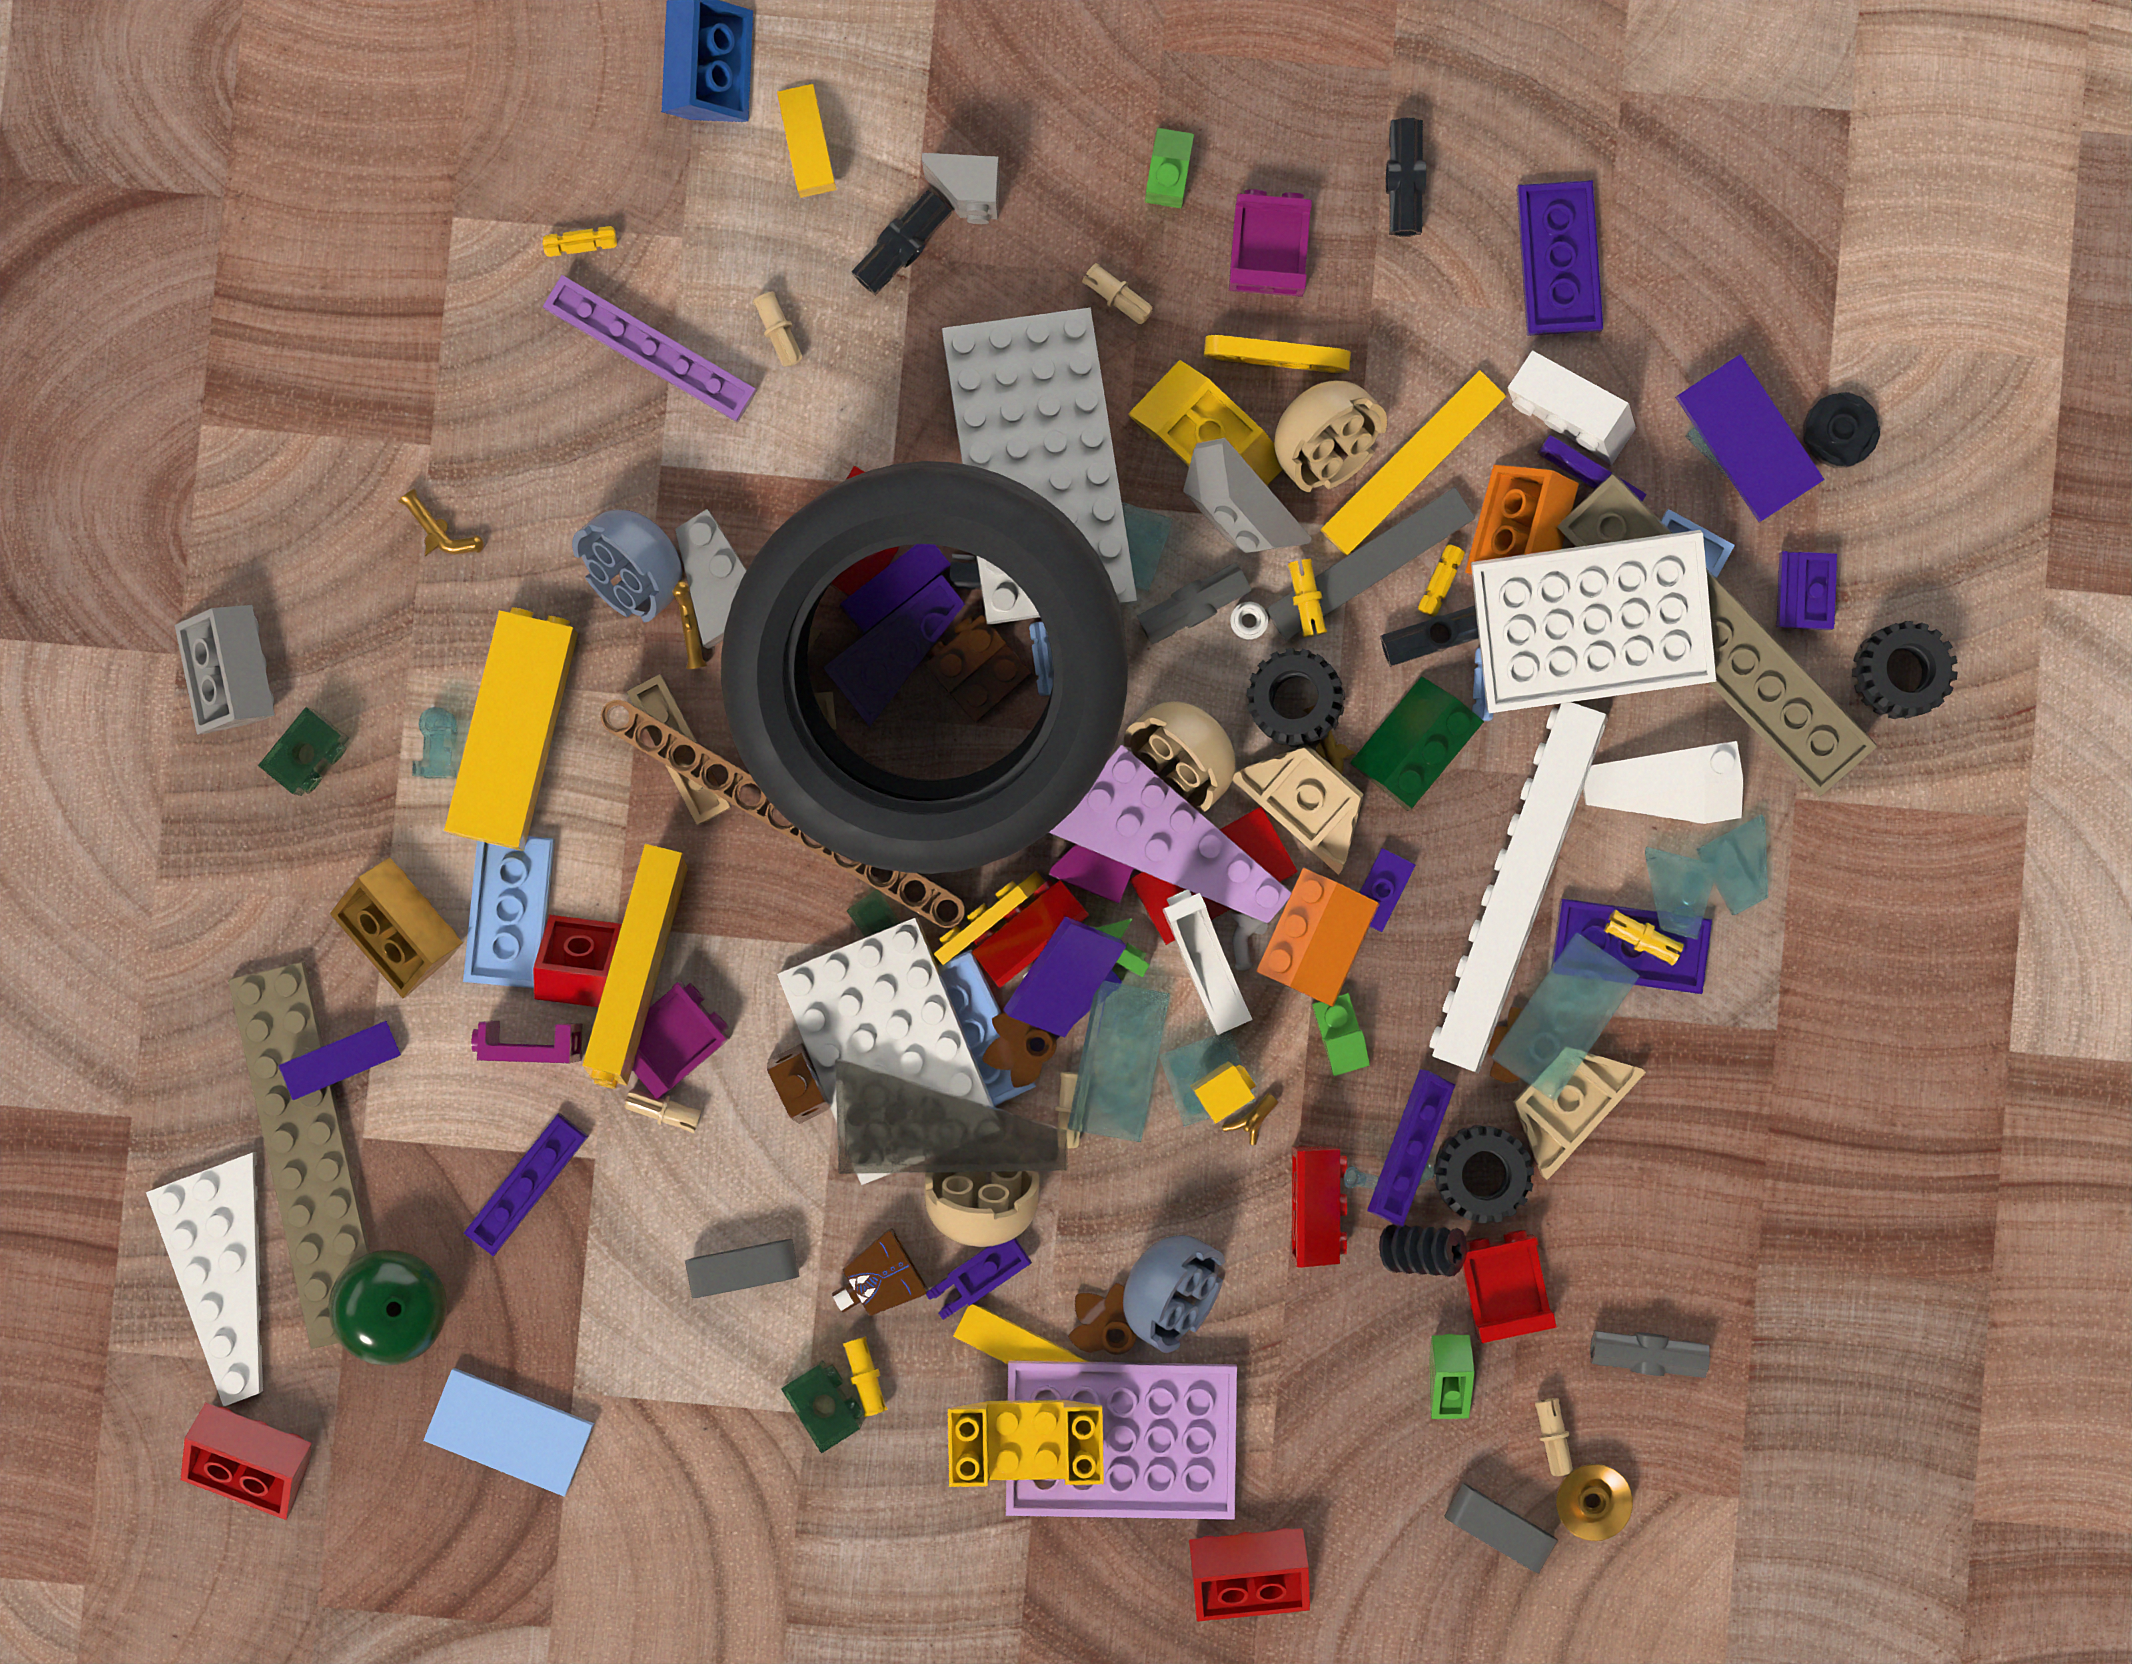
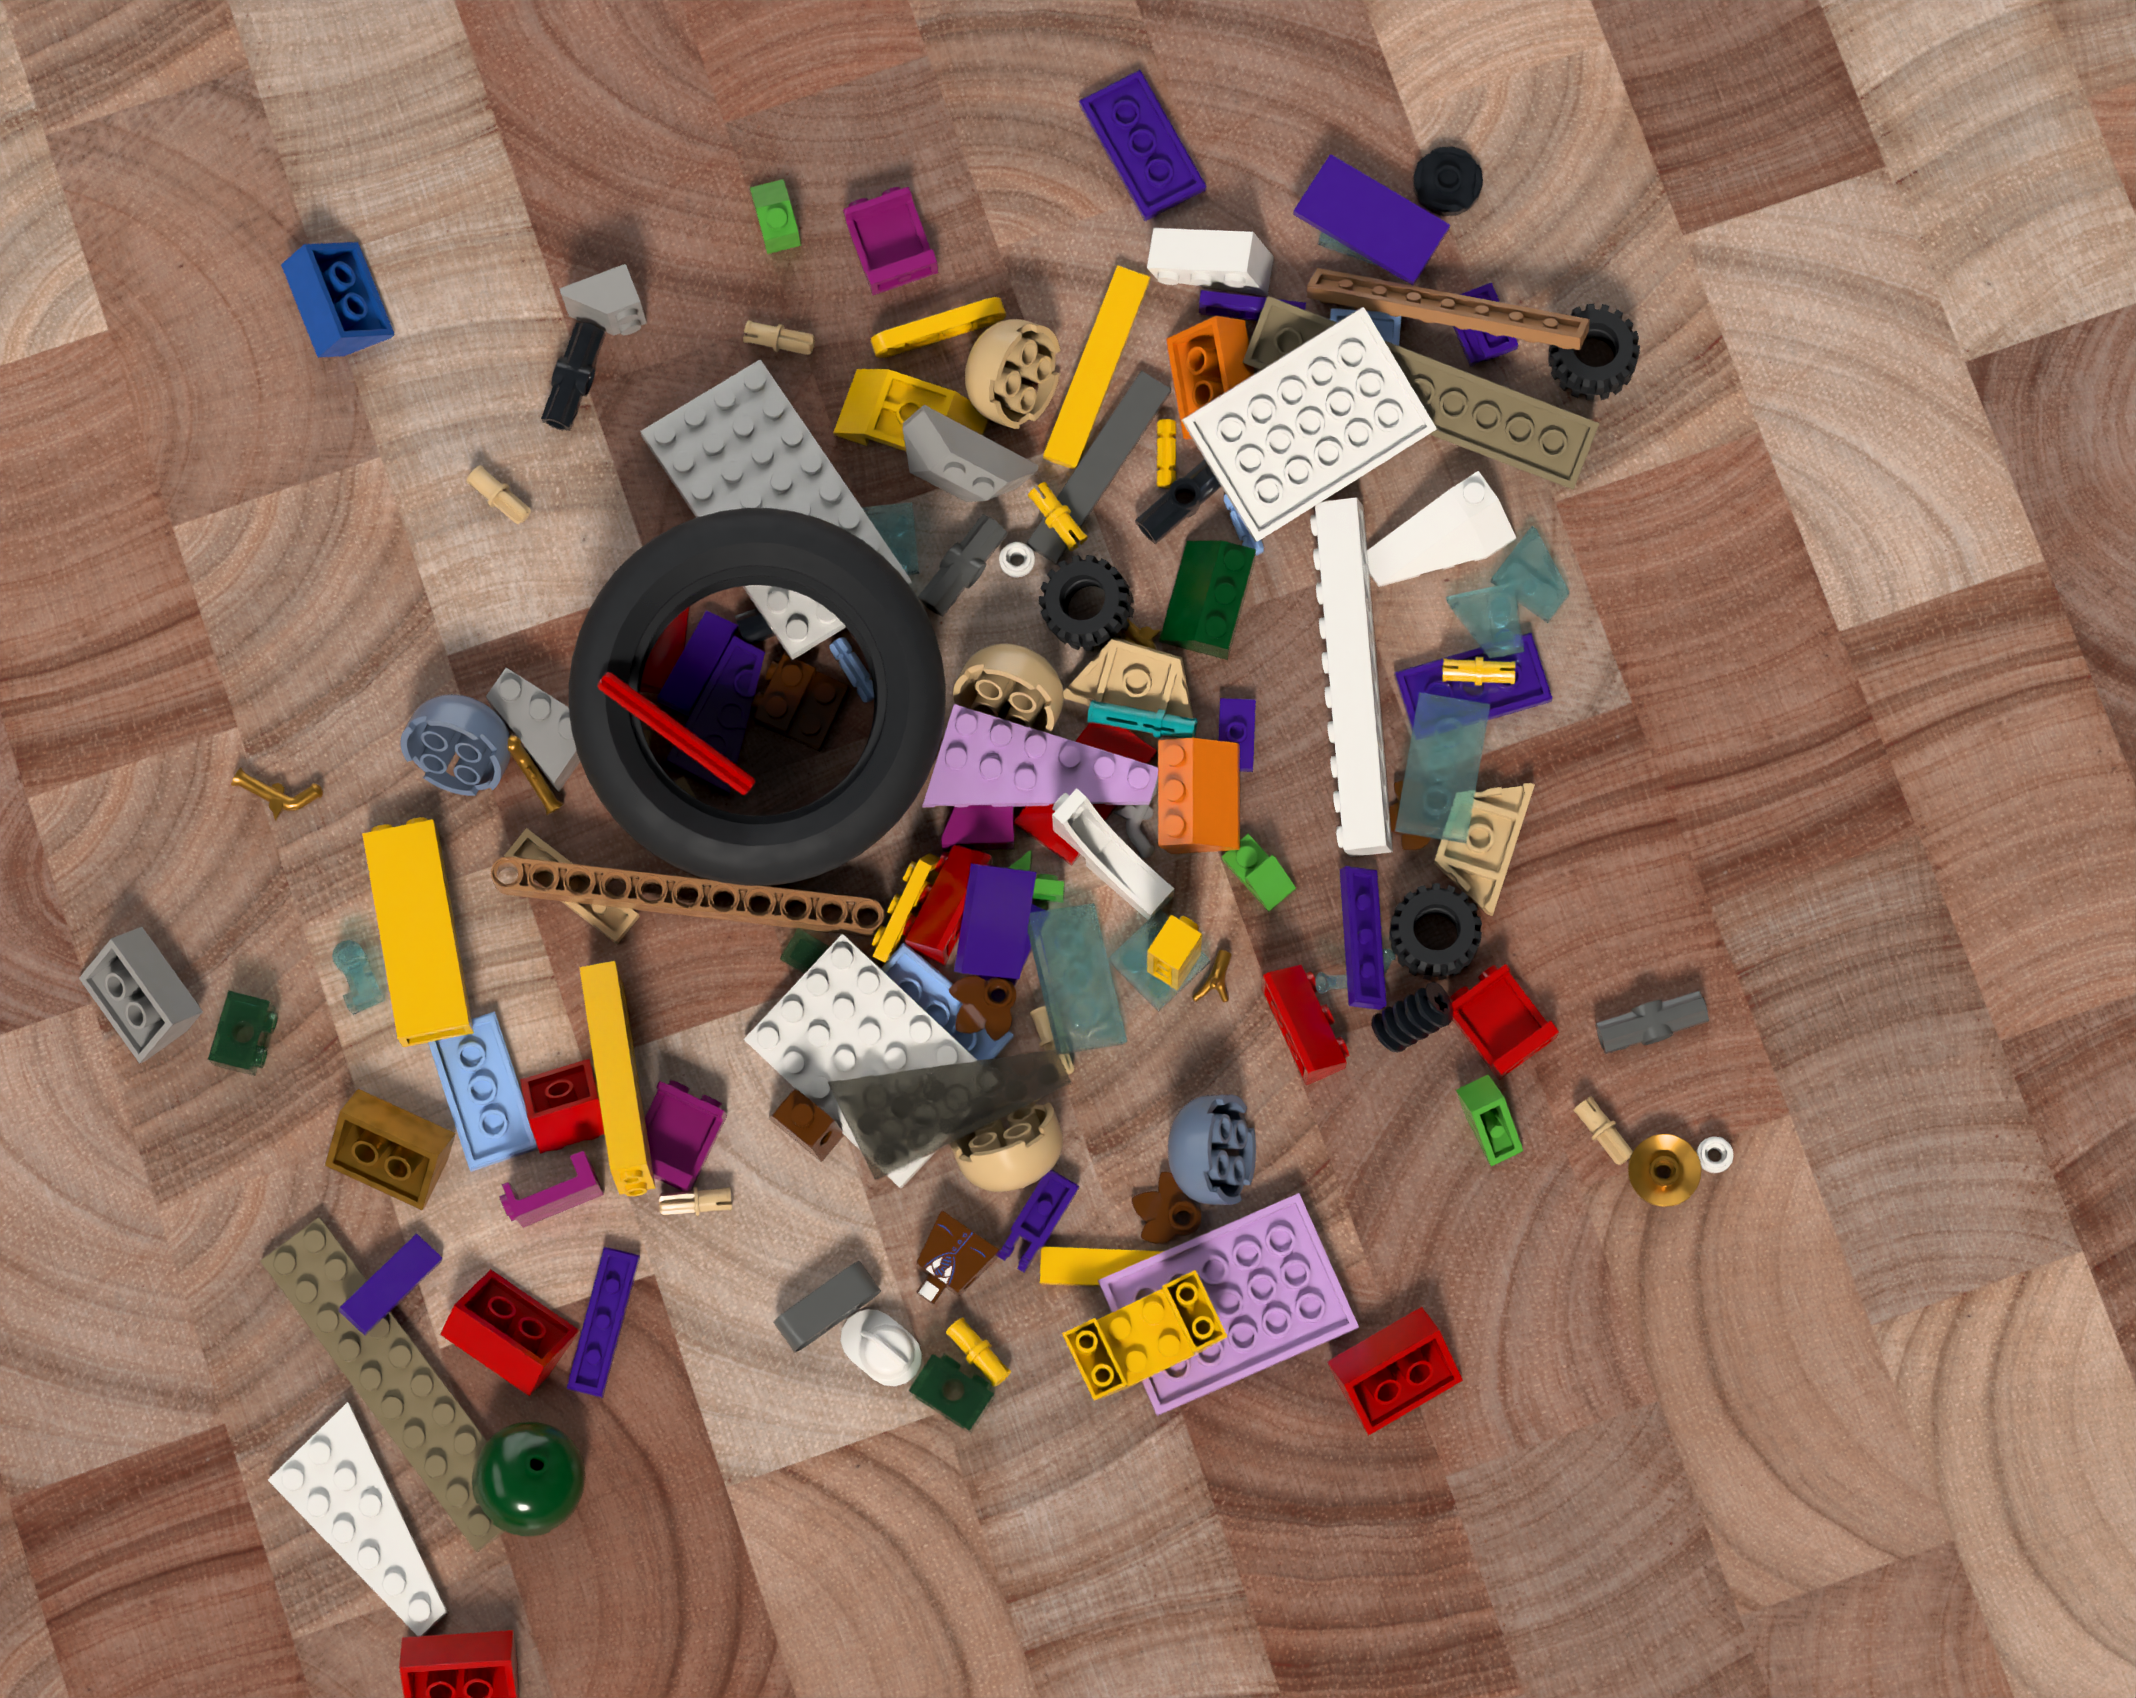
camera: 25 degrees left, 10 degrees down
(432, 1155) = (509, 1332): none -> red slope
(509, 1432) = (684, 1545): light blue tile -> none
(579, 241) = (293, 497): yellow axle -> none
(649, 348) = (394, 559): medium lavender plate -> none
(776, 1327) = (881, 1347): none -> white piece
(806, 141) = (453, 328): yellow slope -> none
(822, 683) = (676, 733): none -> red axle
(1289, 833) = (1142, 720): none -> teal pin
(1405, 177) = (980, 135): black piece -> none
(1500, 1528) = (1594, 1230): dark grey beam -> none
(1659, 1512) = (1723, 1147): none -> white plate
(1784, 565) = (1448, 309): none -> medium nougat plate

